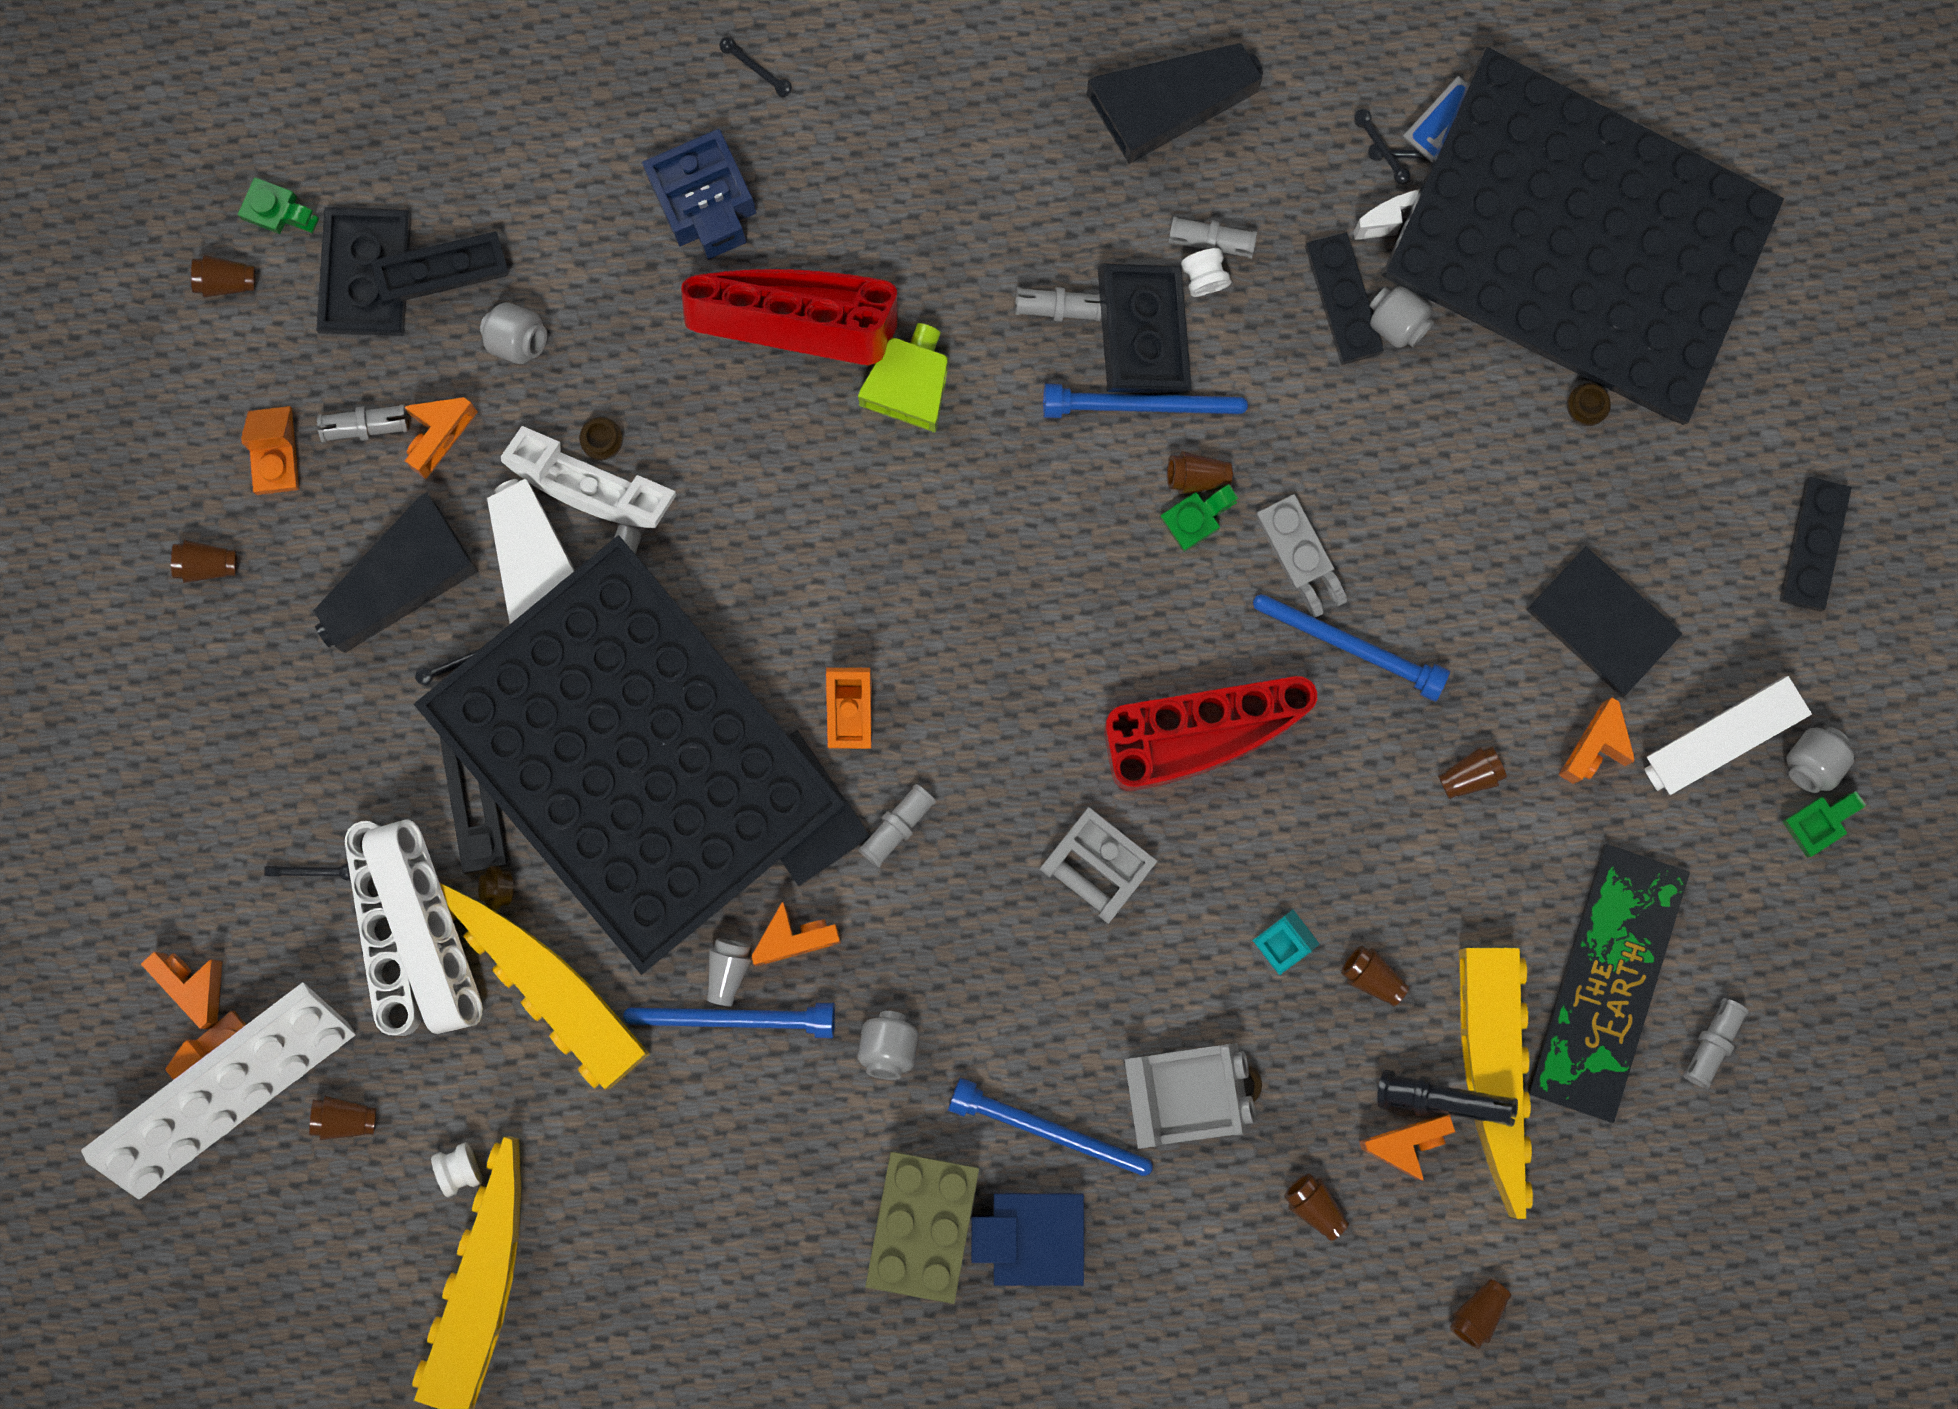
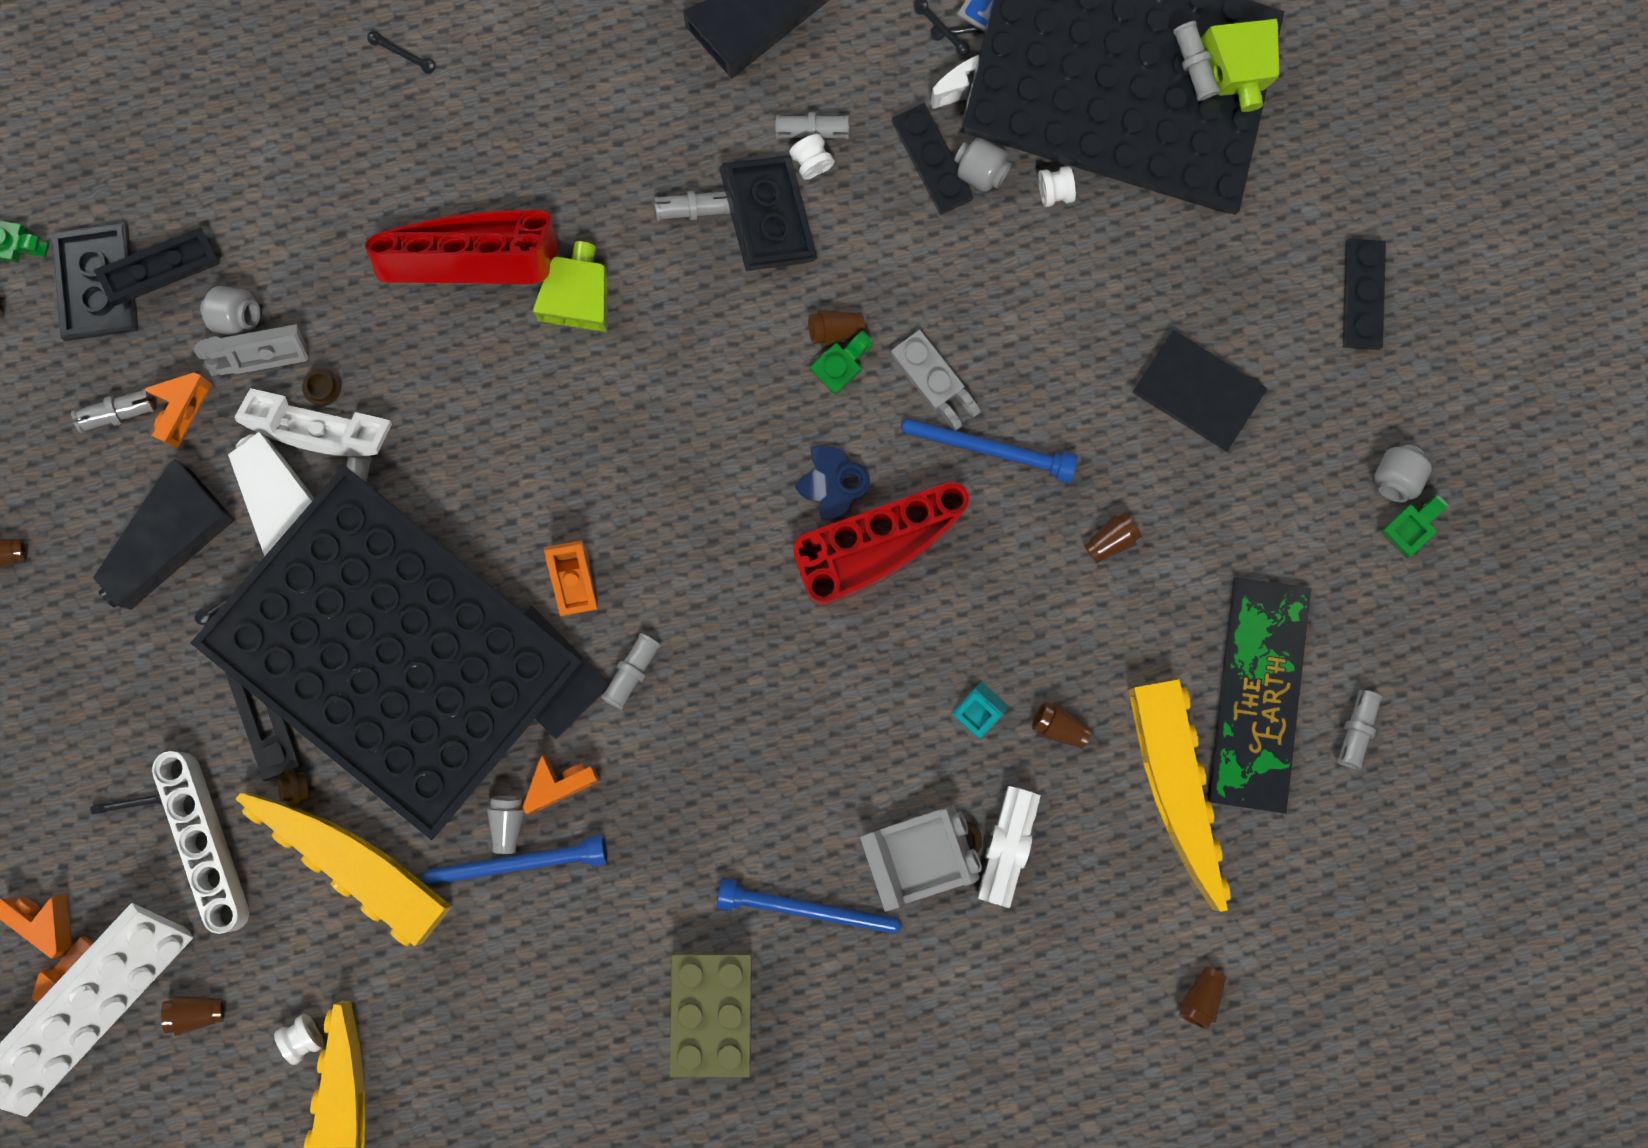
camera: 10 degrees left, 0 degrees up
(272, 450) = (39, 447): orange slope -> none
(422, 926) = (231, 834): white beam -> none
(530, 383) = (252, 351): none -> light grey hinge
(702, 193) = (372, 165): dark blue piece -> none
(888, 1046) = (655, 862): light grey head -> none
(1032, 1239) = (807, 1006): dark blue piece -> none
(1061, 401) = (708, 286): blue piece -> none
(1106, 852) = (815, 662): light grey plate -> none
(1157, 651) = (827, 482): none -> dark blue plate
(1290, 1102) = (1009, 846): none -> white piece
(1316, 1206) = (1046, 932): reddish brown cone -> none
(1397, 1145) = (1106, 866): orange slope -> none
(1427, 1097) = (1123, 821): black pin -> none
(1482, 356) = (1056, 186): none -> white wheel
(1588, 404) = (1153, 211): dark brown plate -> none
(1604, 734) = (1217, 484): orange slope -> none
(1669, 241) = (1196, 60): none -> light grey pin
(1722, 249) = (1244, 59): none -> lime torso
(1727, 736) = (1322, 467): white slope -> none

